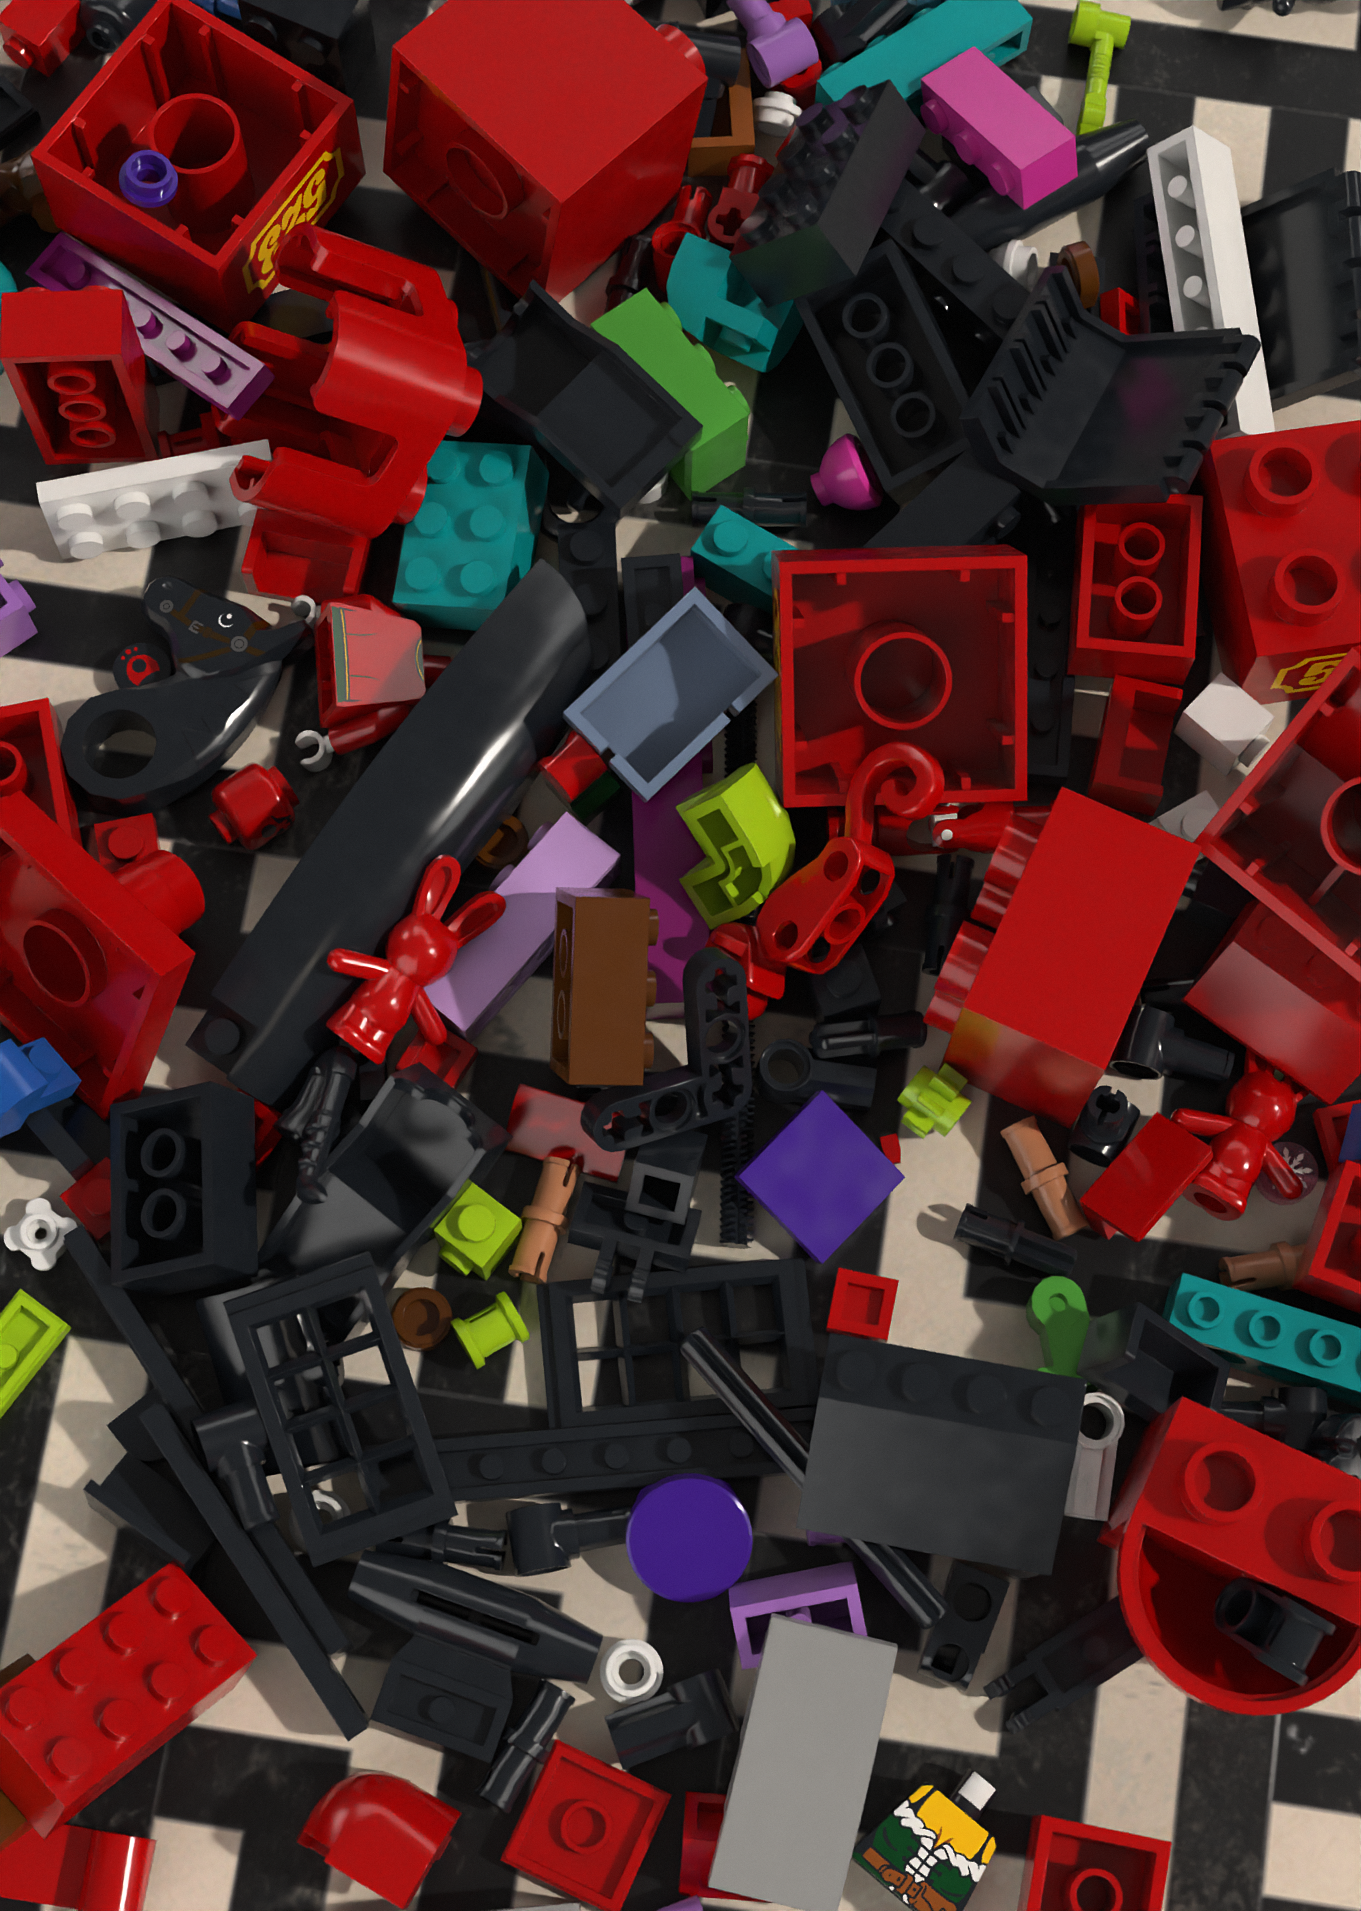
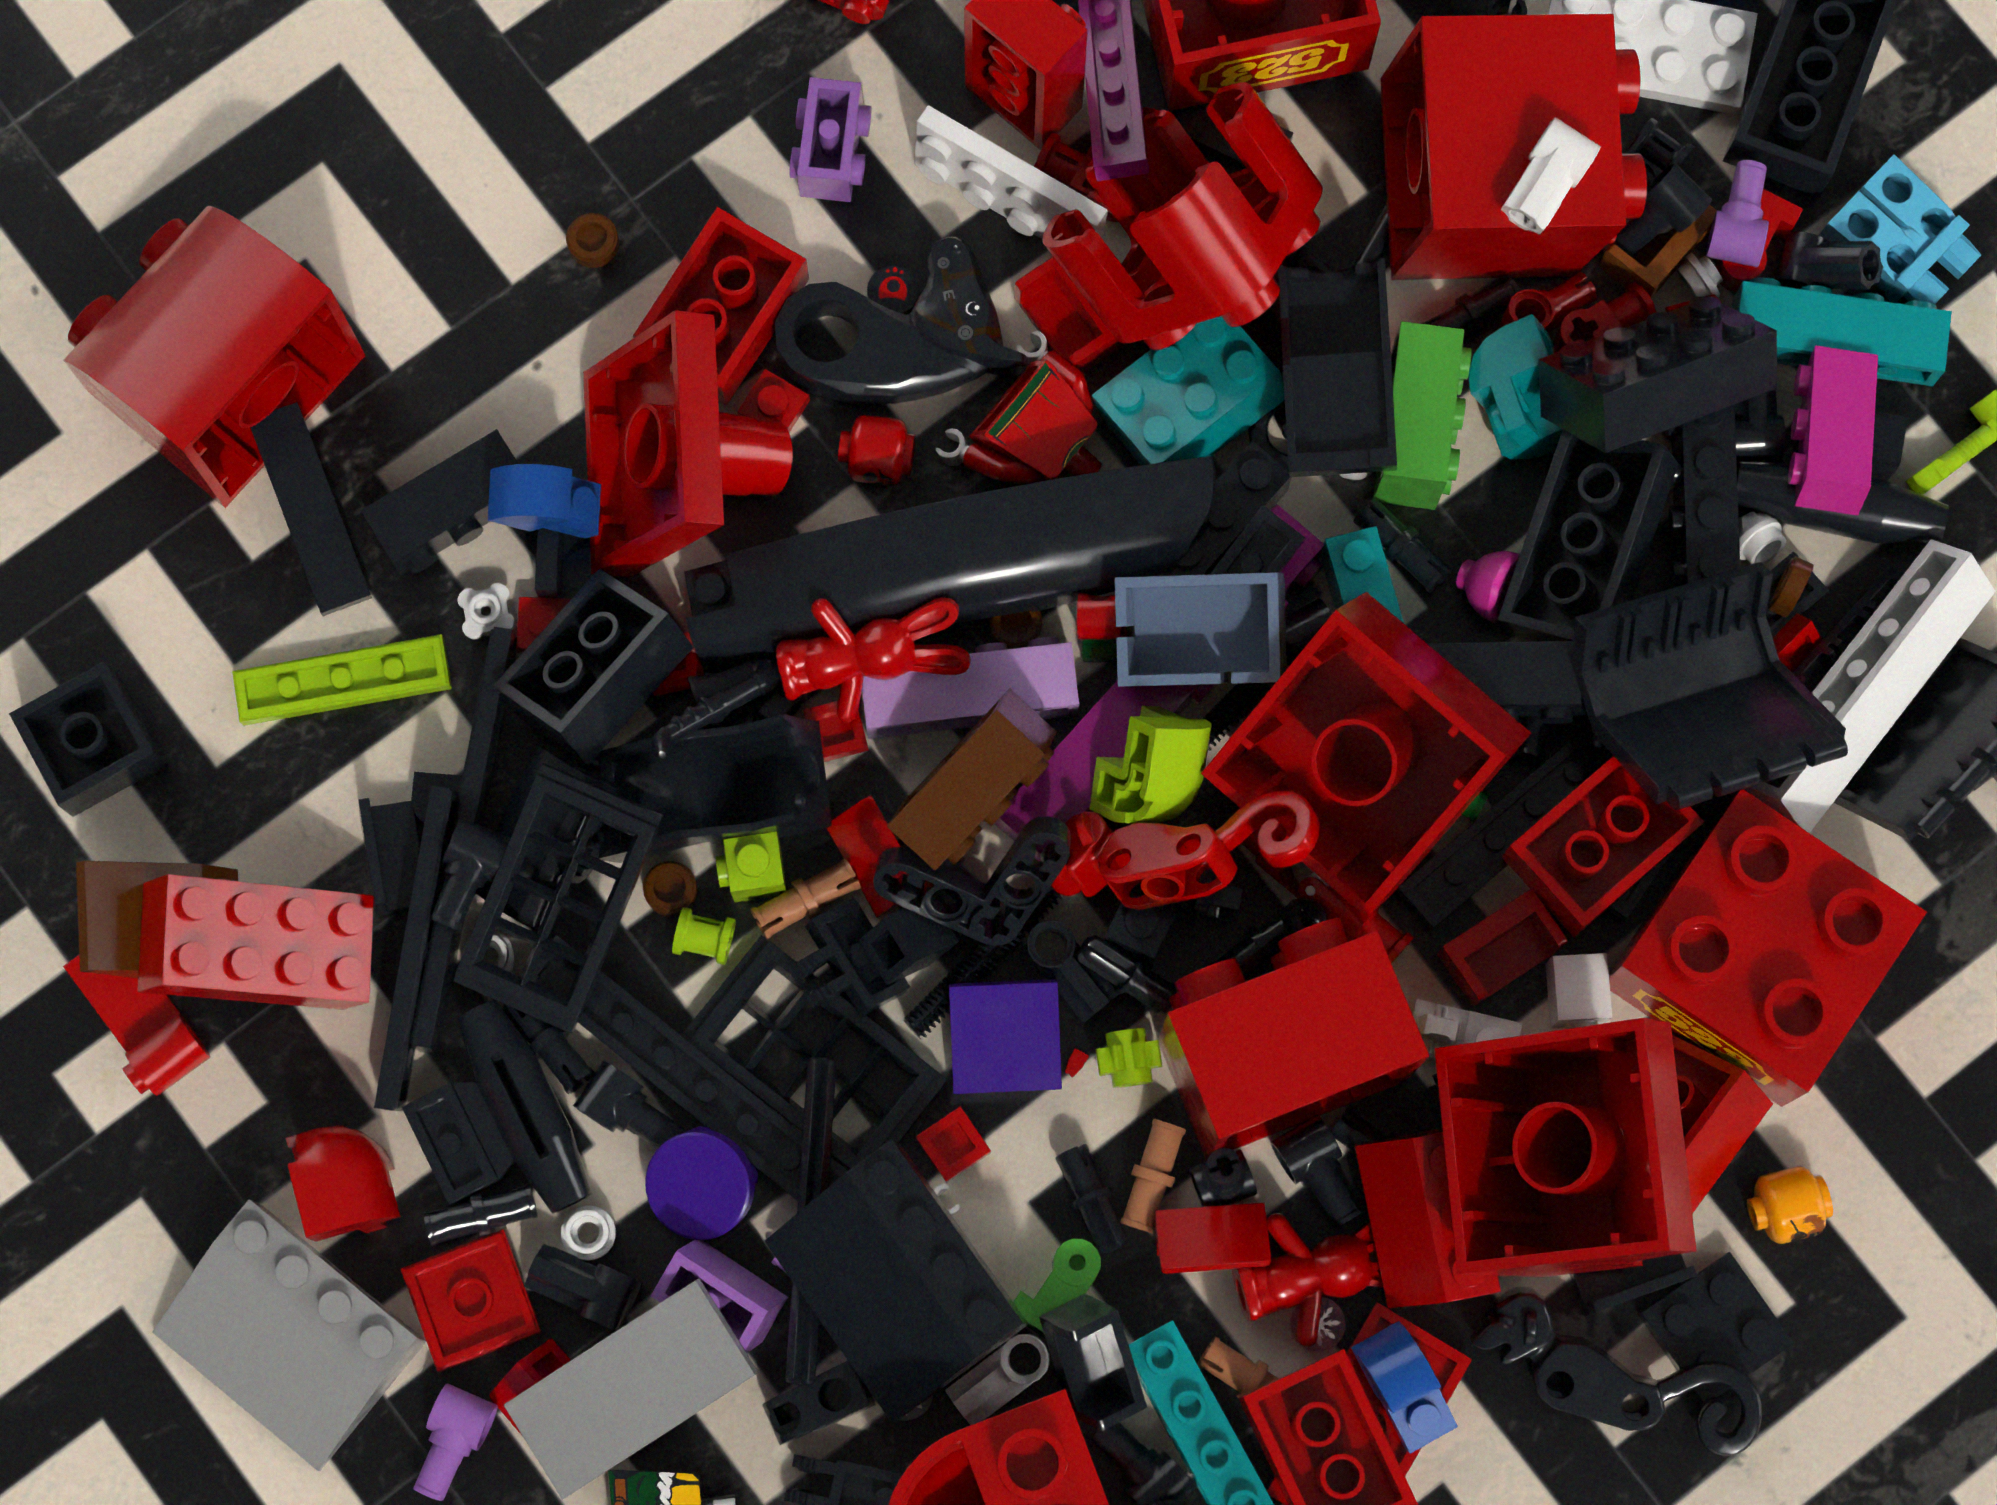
camera: 45 degrees right, 5 degrees up
(614, 68) = (1555, 167): none -> white piece
(966, 872) = (1309, 906): none -> black hinge

